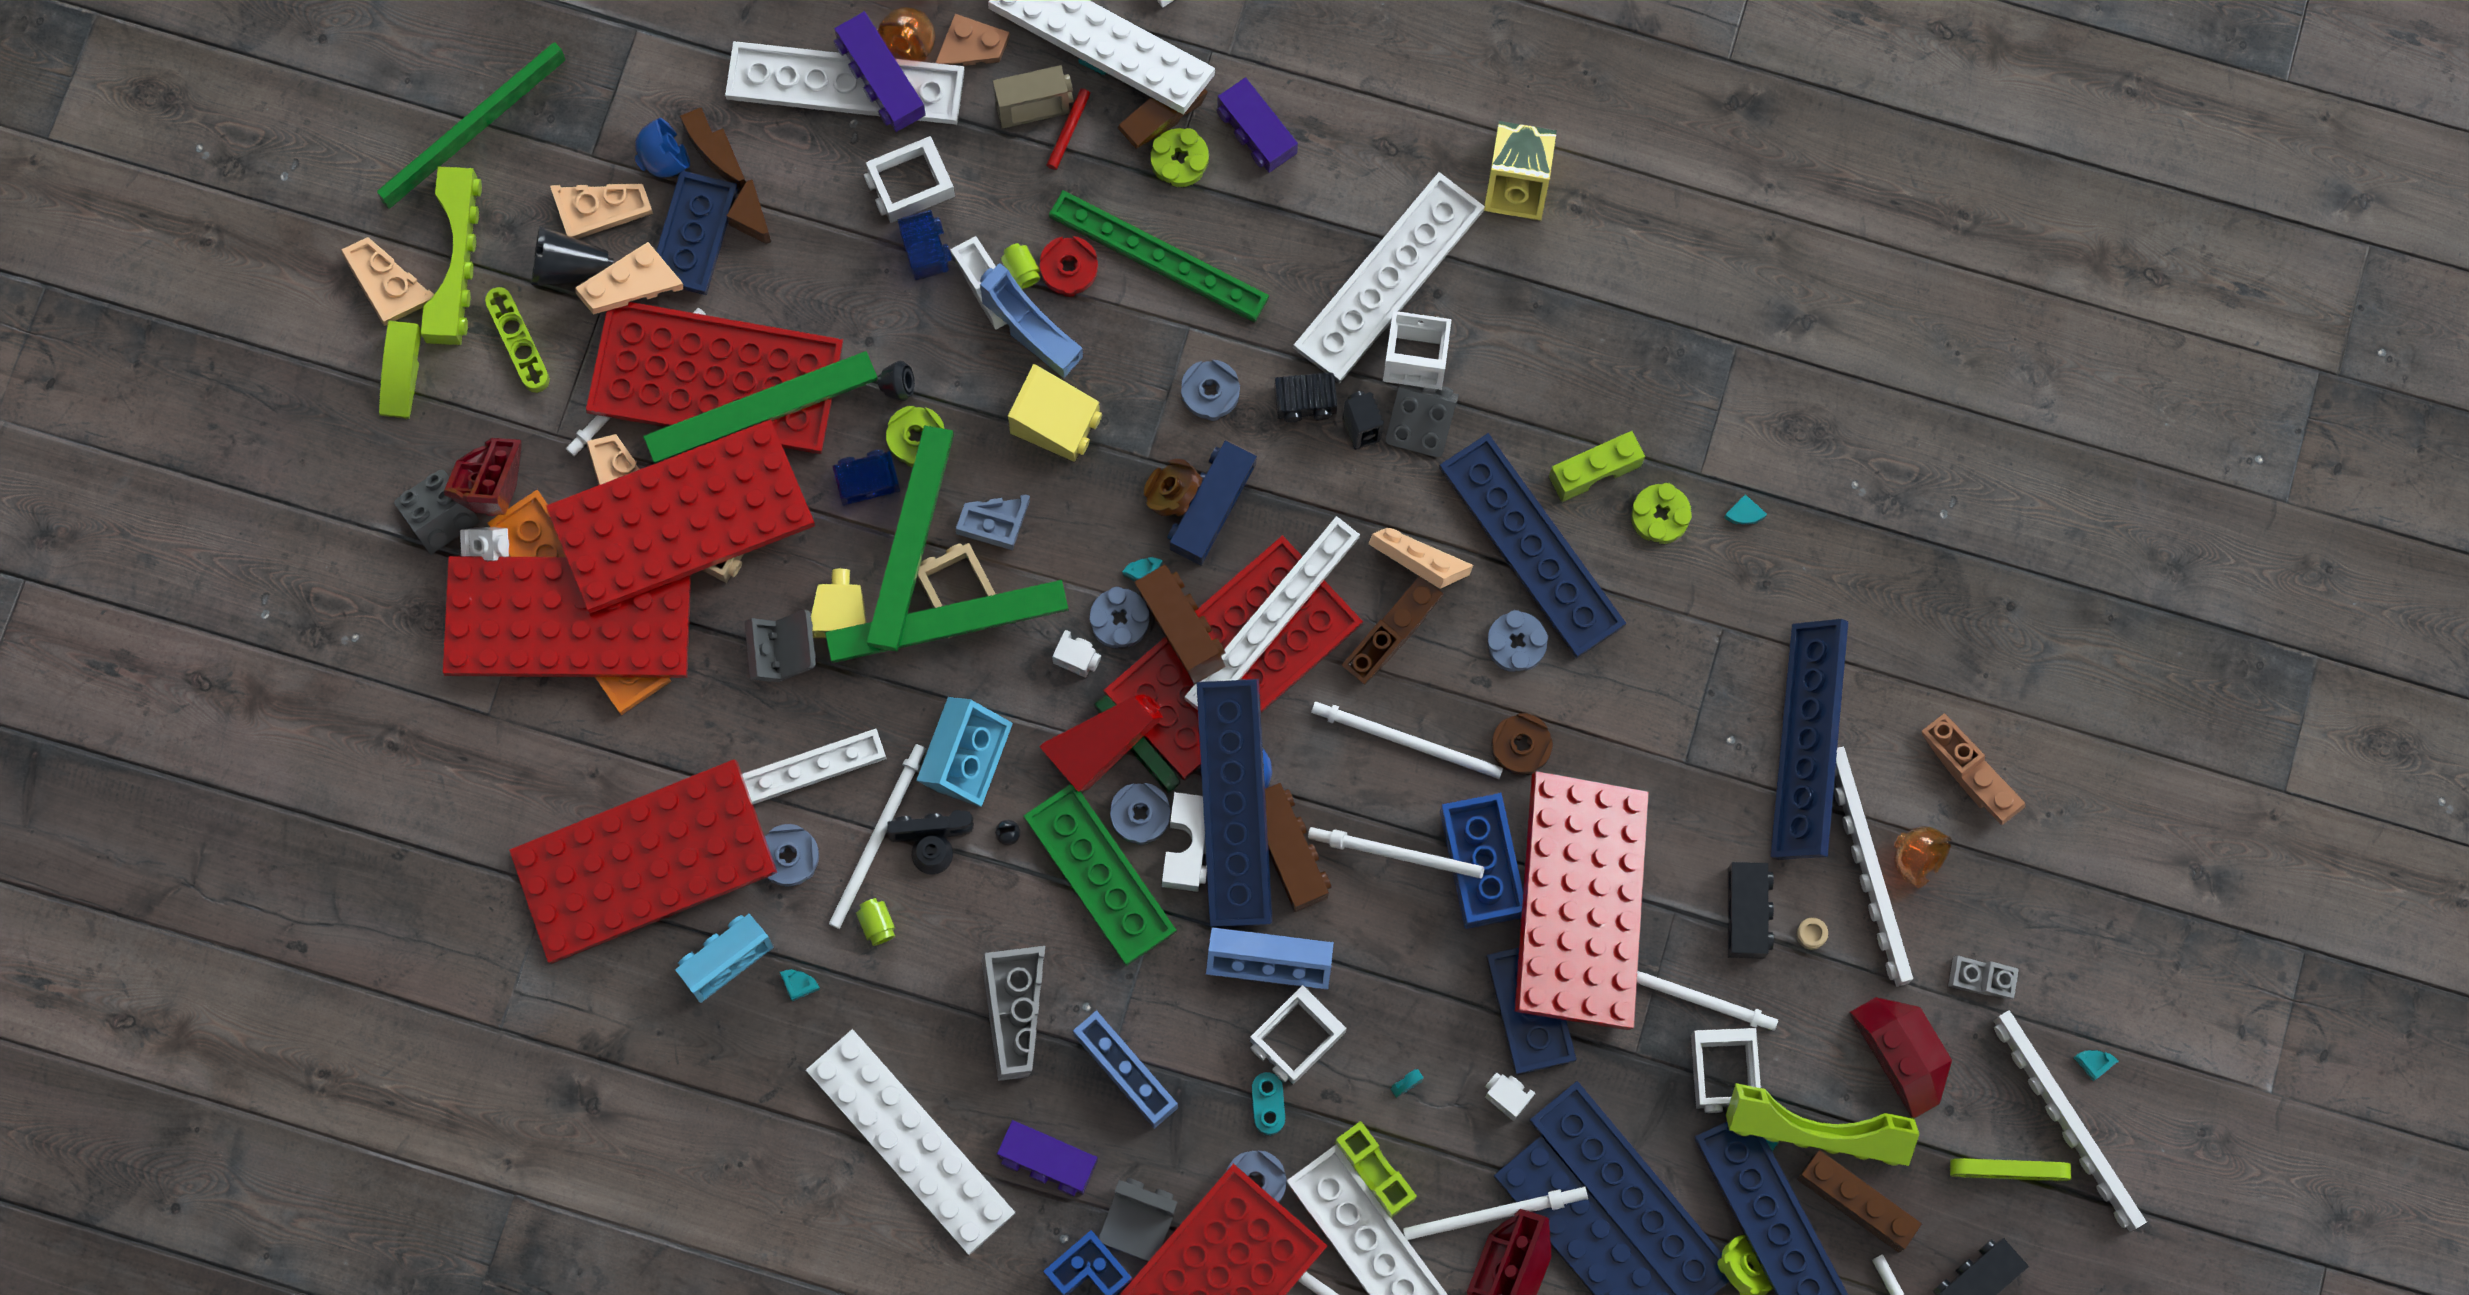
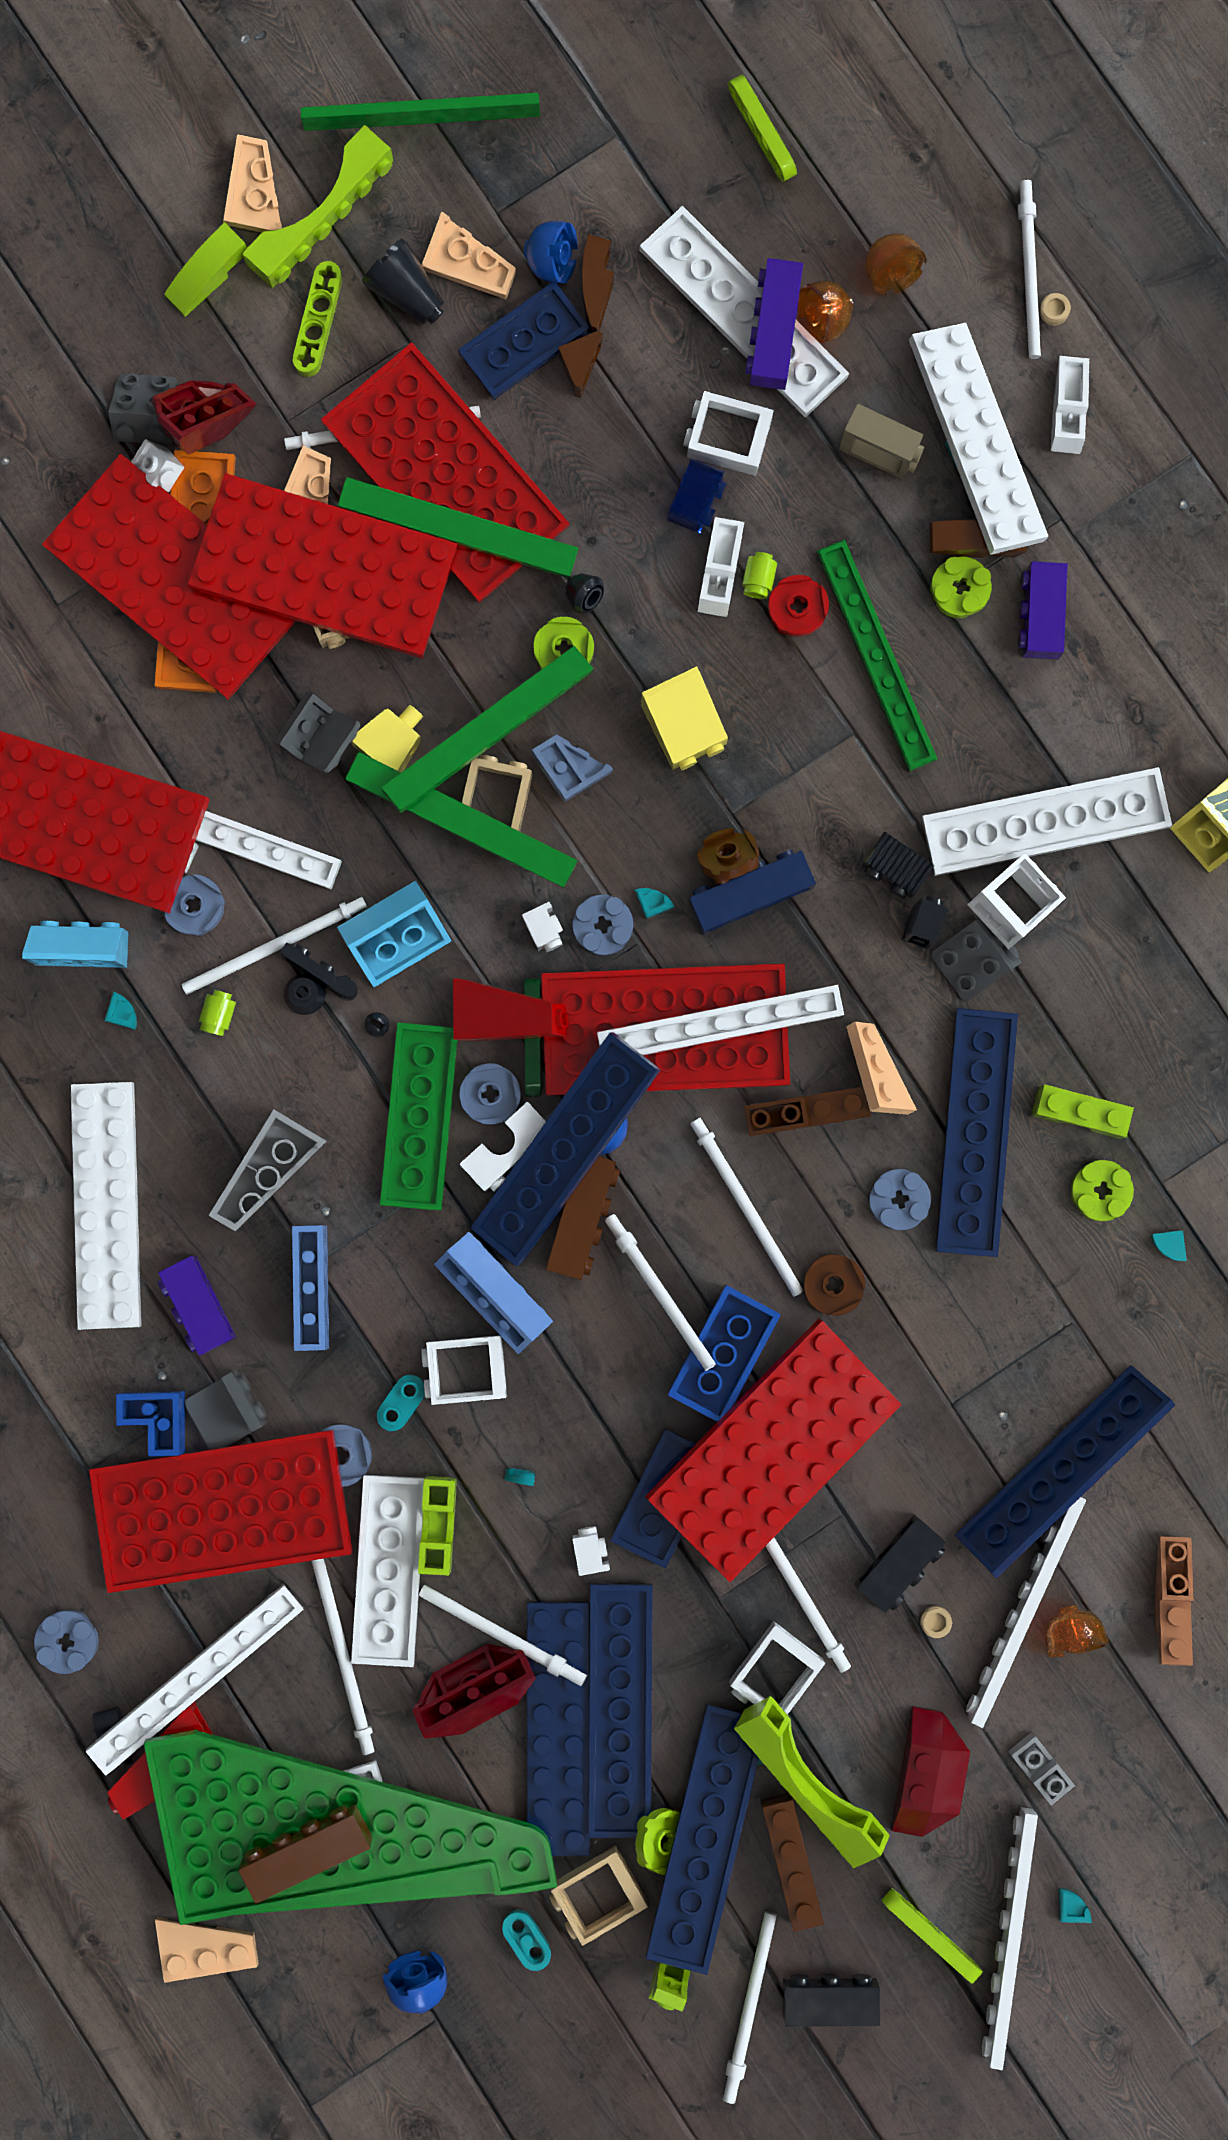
camera: 40 degrees right, 10 degrees up
(629, 279) = (437, 338): light nougat wing -> none
(866, 477) = (496, 650): clear blue brick -> none
(972, 43) = (872, 359): nougat wing -> none
(1027, 322) = (724, 626): medium blue arch -> none
(1068, 129) = (891, 492): red bar -> none
(1180, 624) = (642, 971): reddish brown brick -> none
(1211, 406) = (836, 784): sand blue plate -> none

